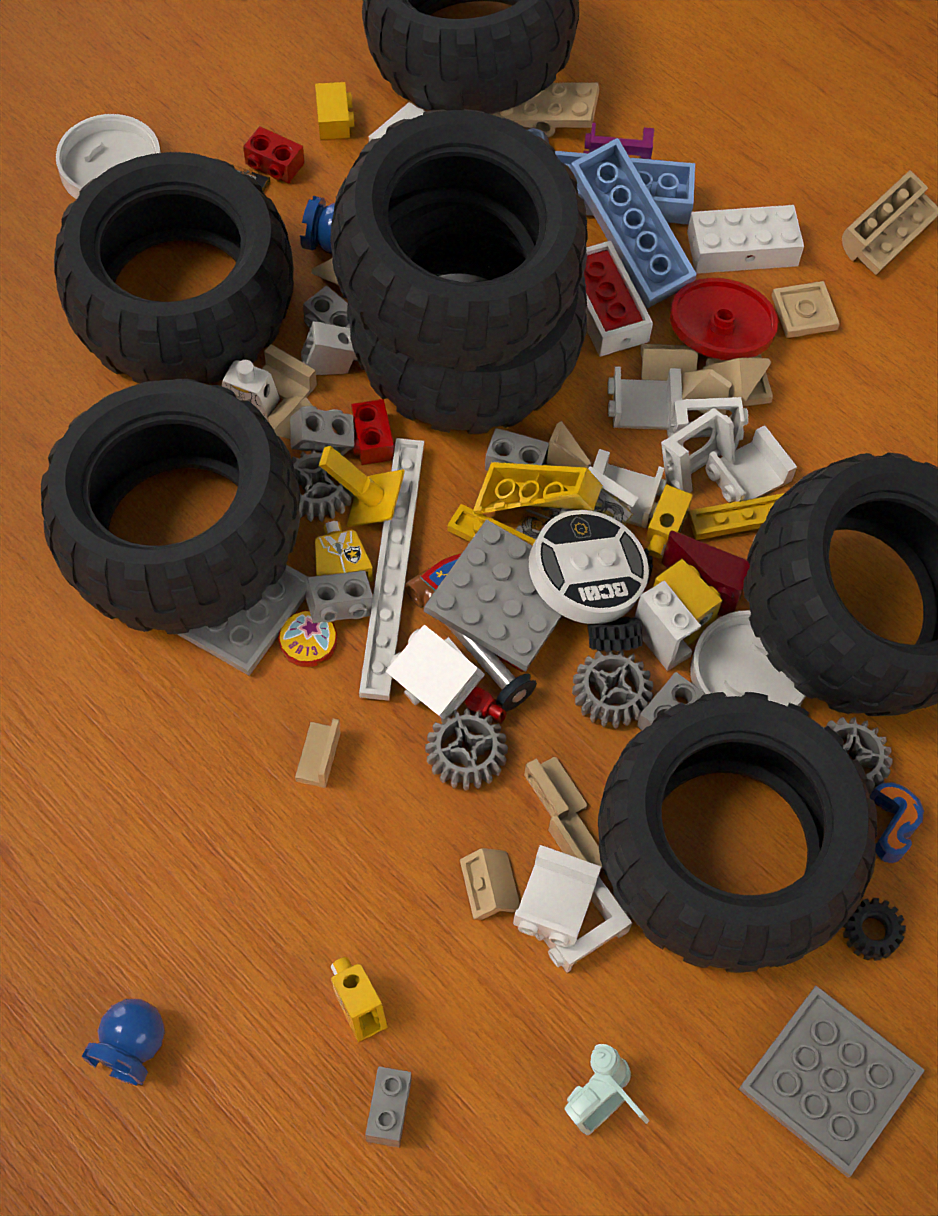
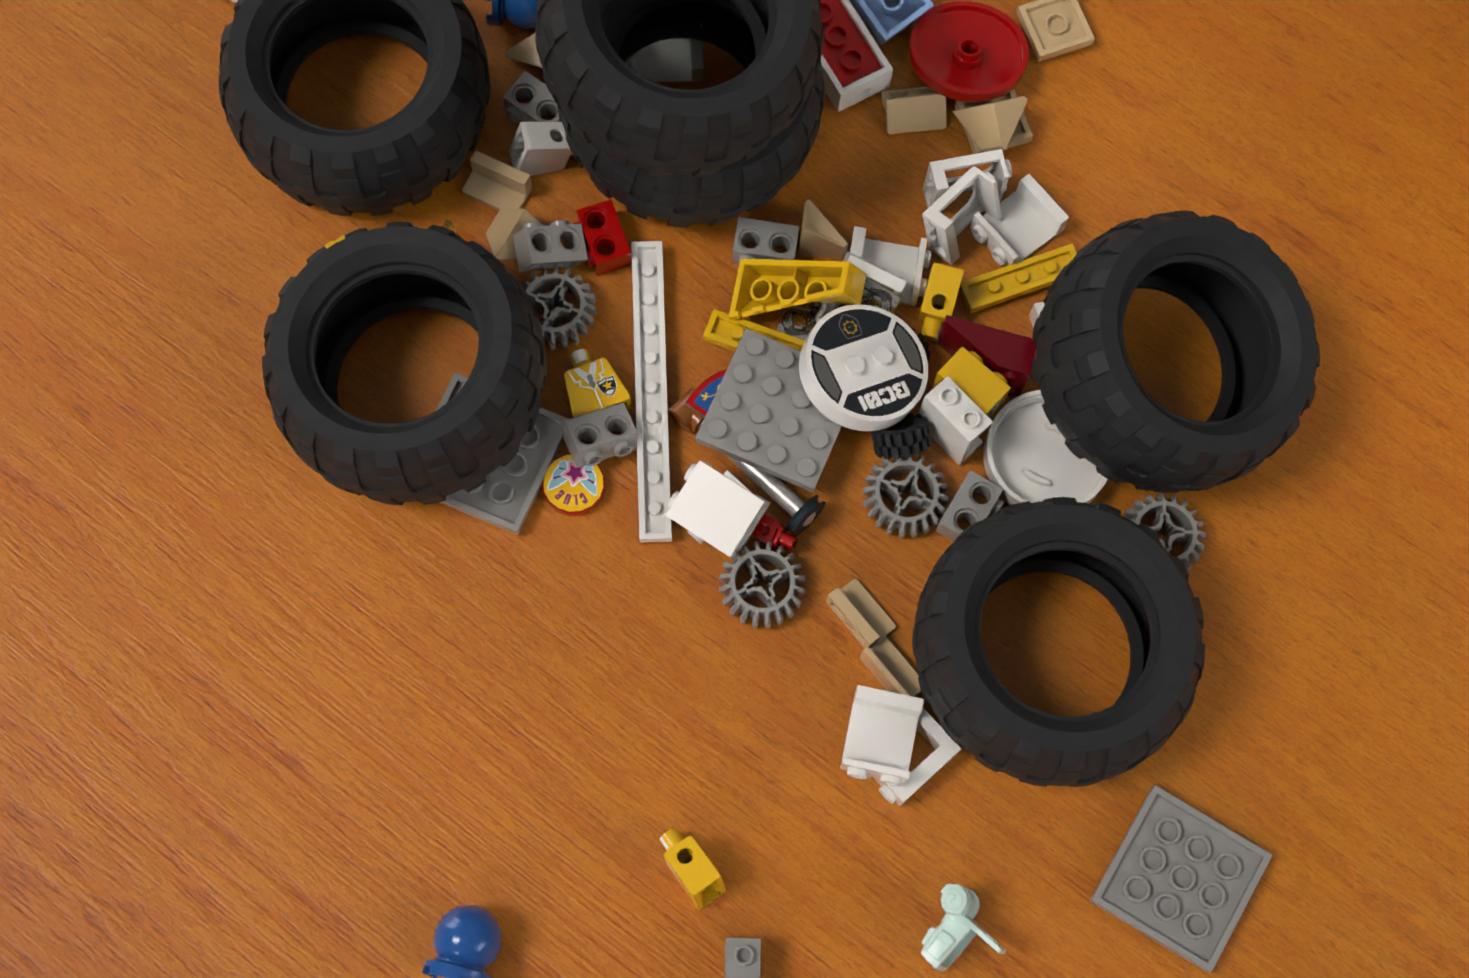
camera: 10 degrees left, 10 degrees up
(252, 385) = (462, 206): white torso -> none
(318, 753) = (606, 611): tan panel -> none
(373, 494) = (617, 310): yellow piece -> none
(489, 883) = (808, 725): tan panel -> none
(643, 402) = (894, 159): white panel -> none
(704, 385) = (958, 139): tan slope -> none
(891, 922) = (1224, 725): black tyre -> none
(907, 818) = (1226, 596): blue animal -> none

